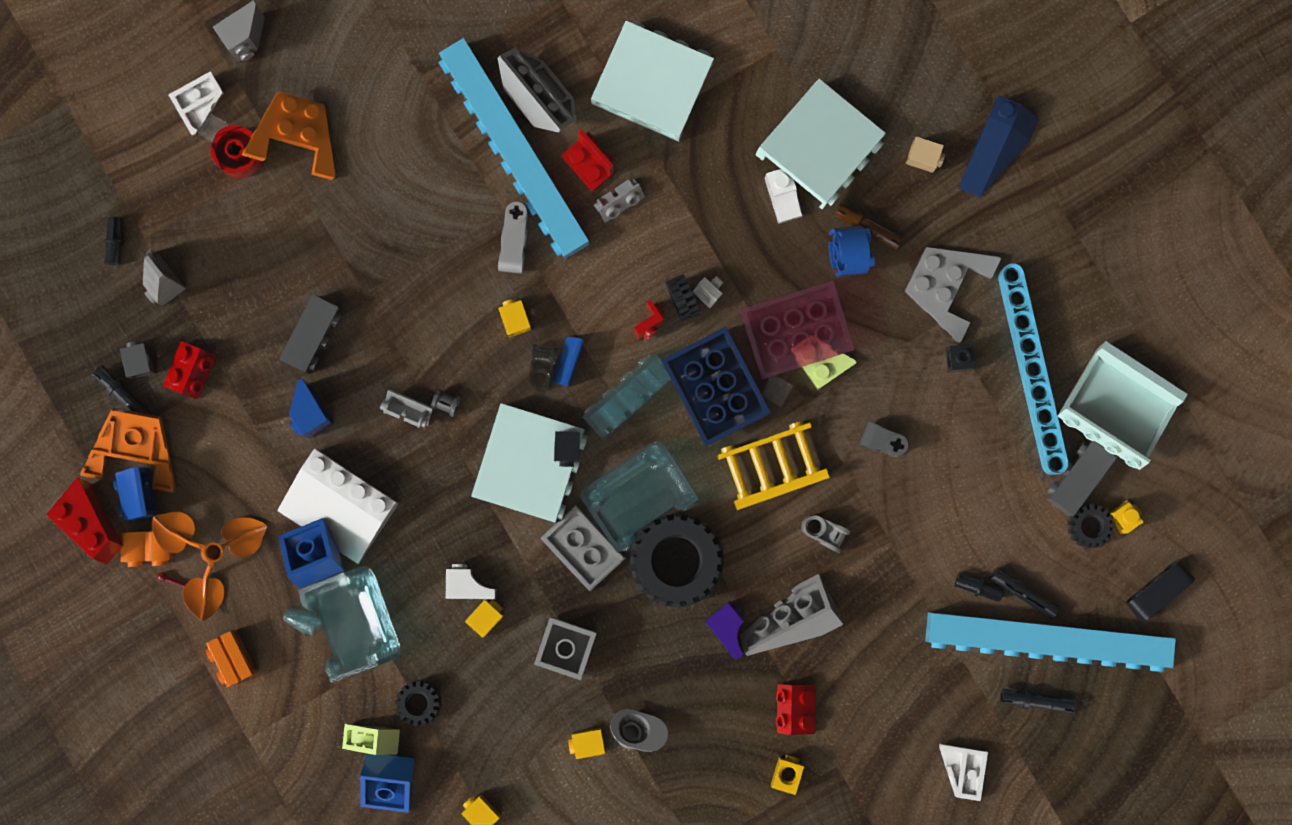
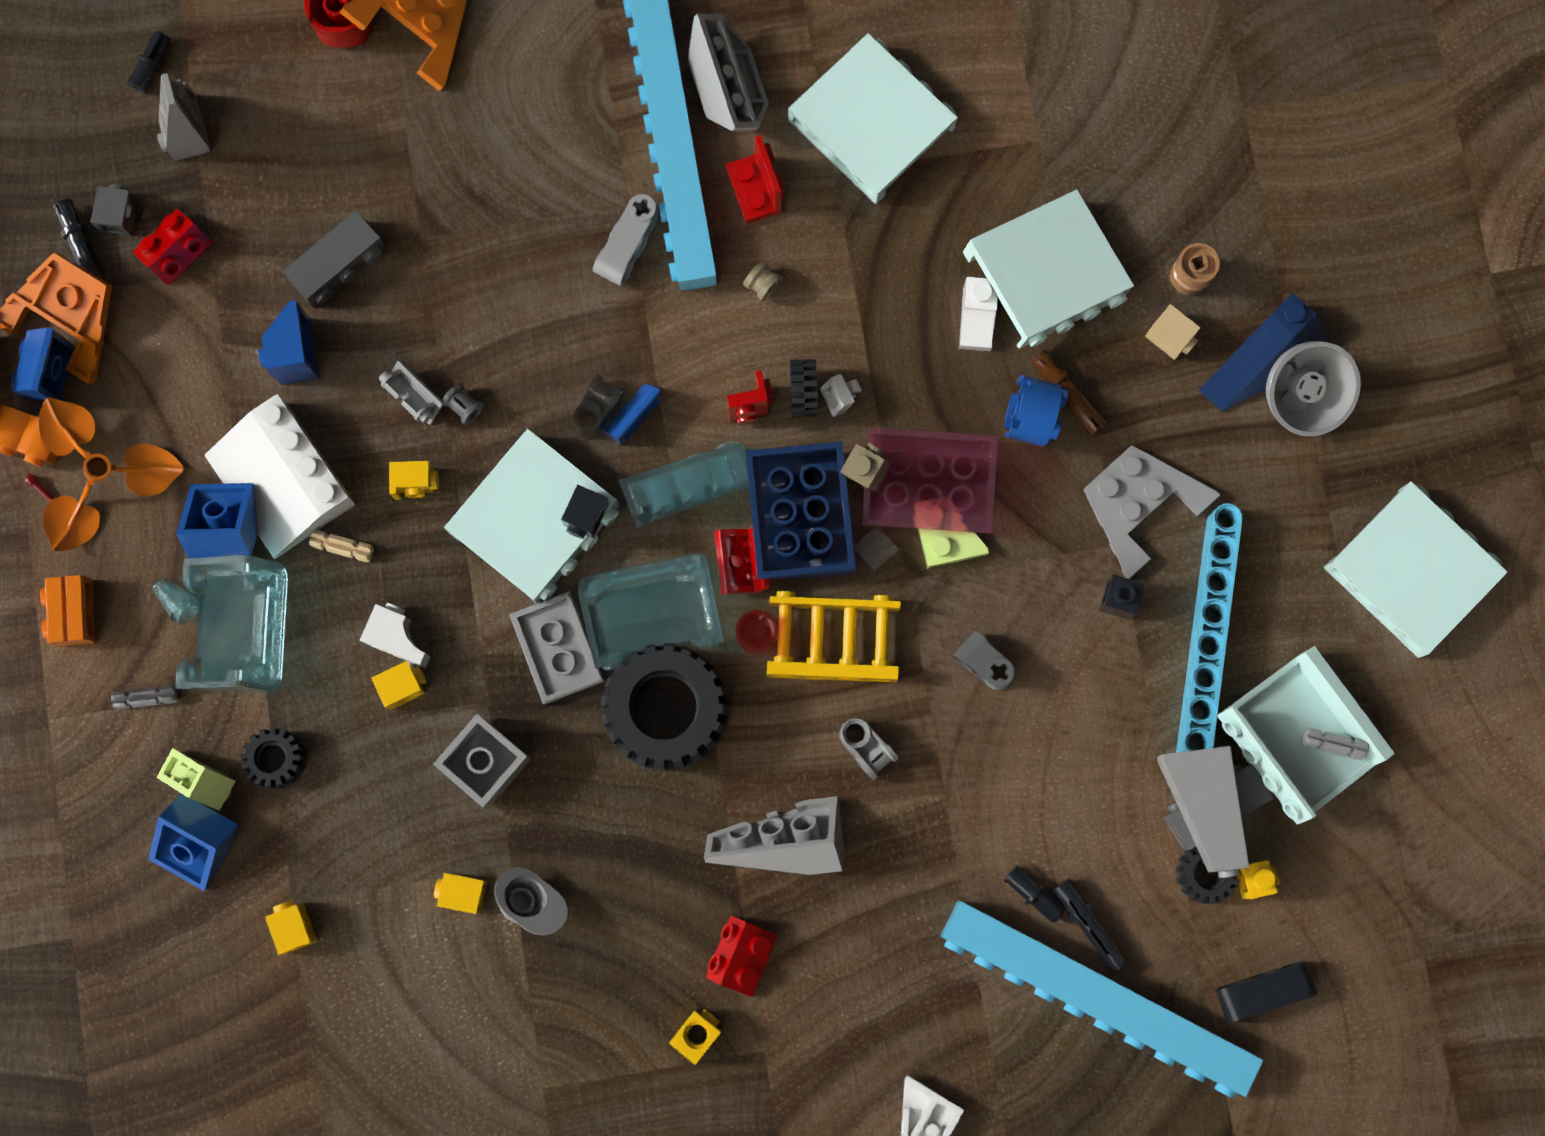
camera: 25 degrees right, 5 degrees down
(309, 696) = (144, 697): none -> flat silver axle
(402, 536) = (341, 546): none -> tan axle
(433, 470) = (412, 479): none -> yellow brick
(514, 317) = (588, 335): yellow brick -> none
(622, 230) = (763, 281): none -> dark tan wheel
(628, 195) = (786, 243): light grey hinge -> none
(685, 438) = (738, 562): none -> red bracket
(719, 483) = (756, 633): none -> clear red wheel
(725, 625) = (693, 814): dark purple arch -> none
(751, 339) = (866, 466): none -> dark tan brick
(923, 103) = (1194, 269): none -> medium nougat wheel
(1040, 701) = (1048, 1067): black pin -> none
(1048, 158) = (1325, 394): none -> light grey piece
(1075, 480) = (1209, 803): none -> light grey slope
(1144, 403) = (1335, 743): none -> light grey axle
(1156, 258) = (1416, 569): none -> light aqua panel

